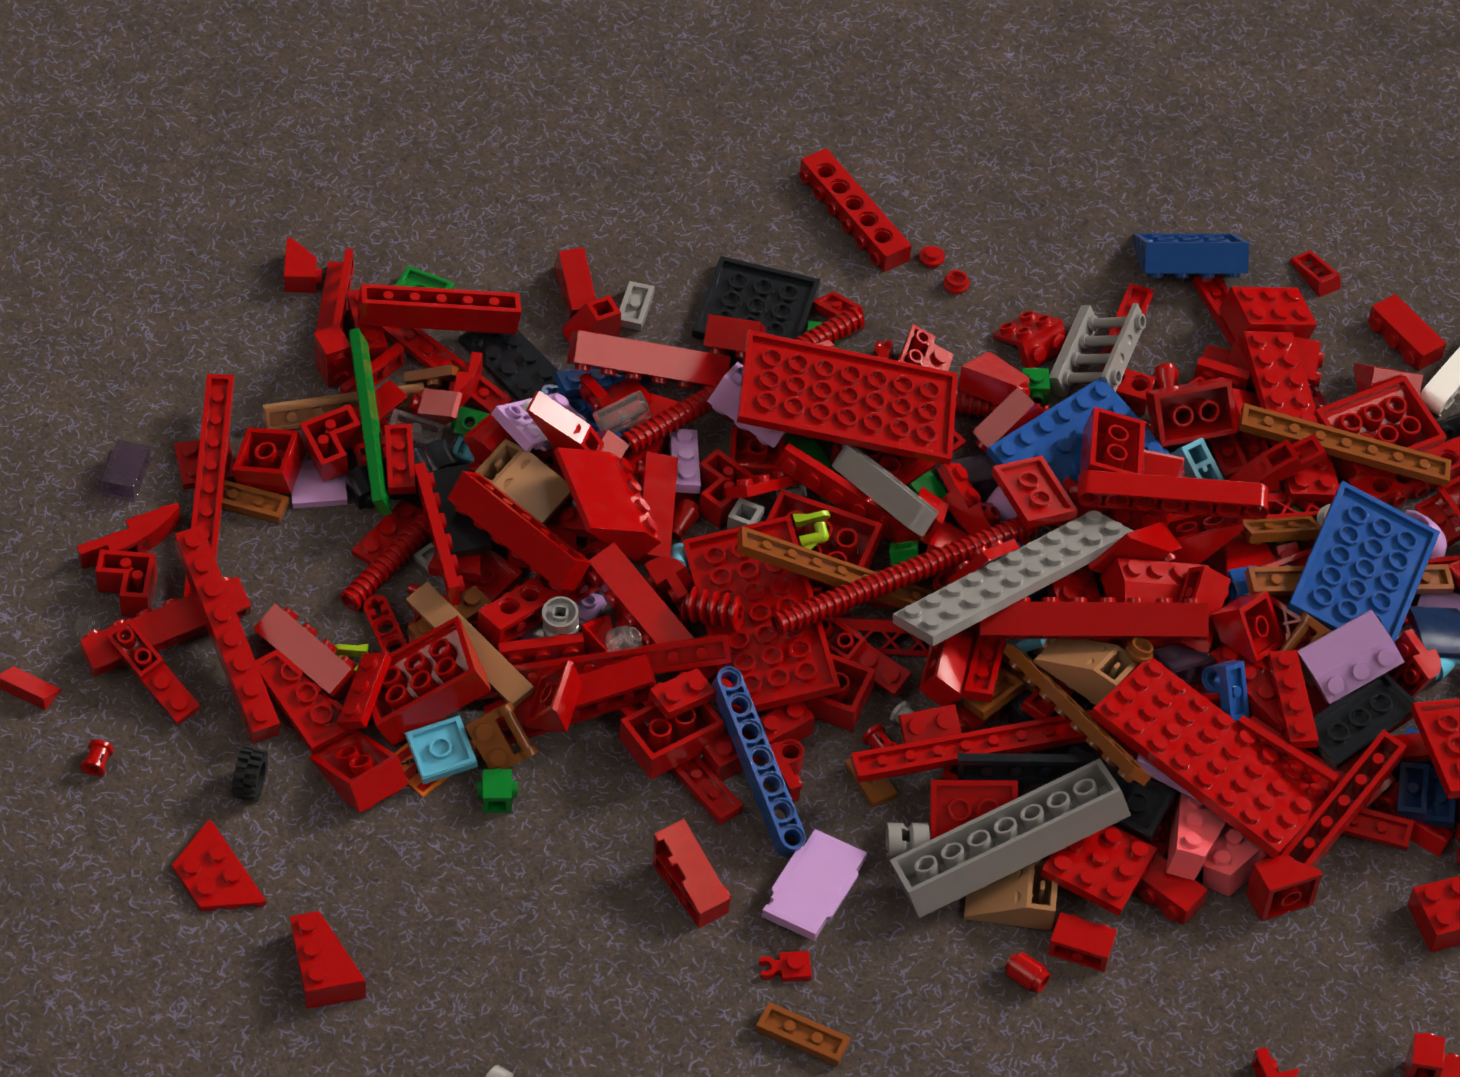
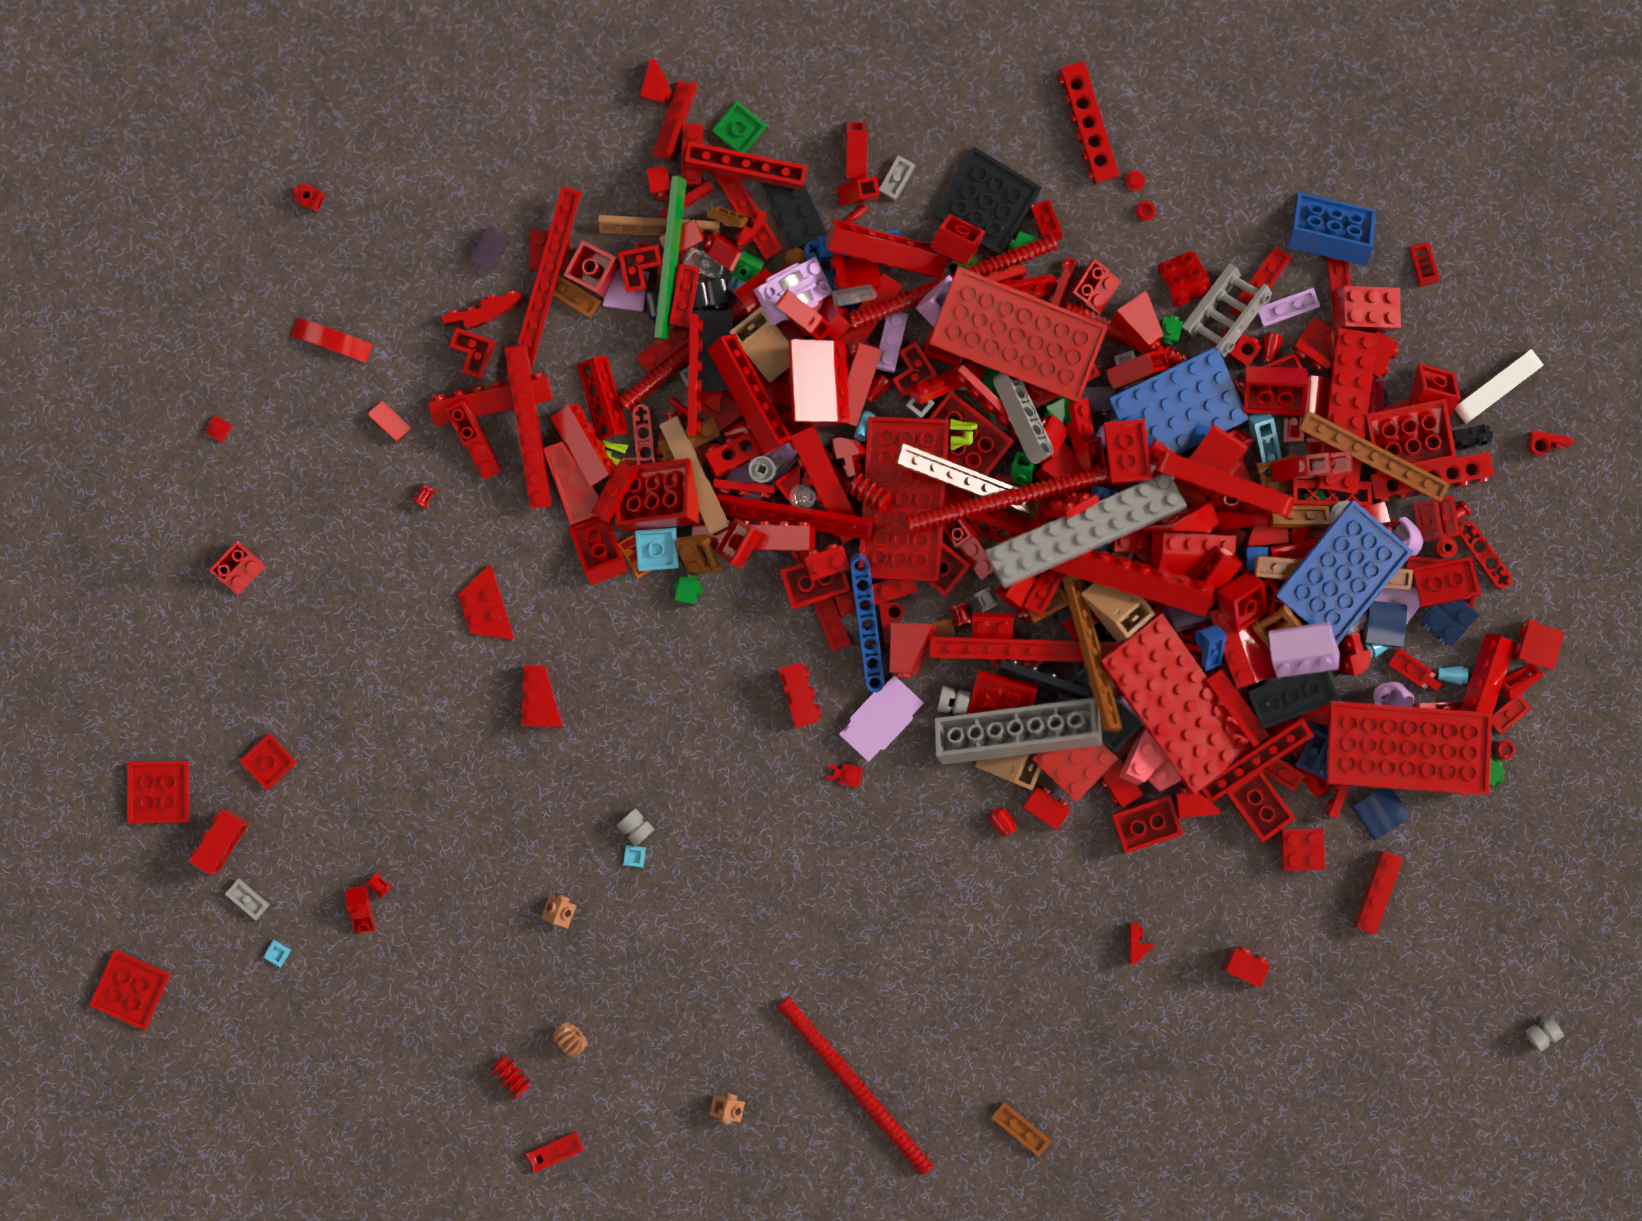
camera: 20 degrees right, 35 degrees up
(250, 773) = (522, 539): black tyre -> none
(321, 591) = (606, 396): none -> red fence
(803, 1034) = (840, 830): dark orange plate -> none
(827, 780) = (909, 647): none -> red slope
(1112, 443) = (1196, 428): red slope -> none
(1139, 650) = (1155, 609): dark orange plate -> none
(1170, 341) = (1288, 307): none -> lavender plate
(1226, 927) = (1146, 824): none -> red brick
(1293, 699) = (1251, 670): red plate -> none
(1369, 871) = (1260, 806): none -> red brick
(1406, 332) = (1469, 343): red brick -> none

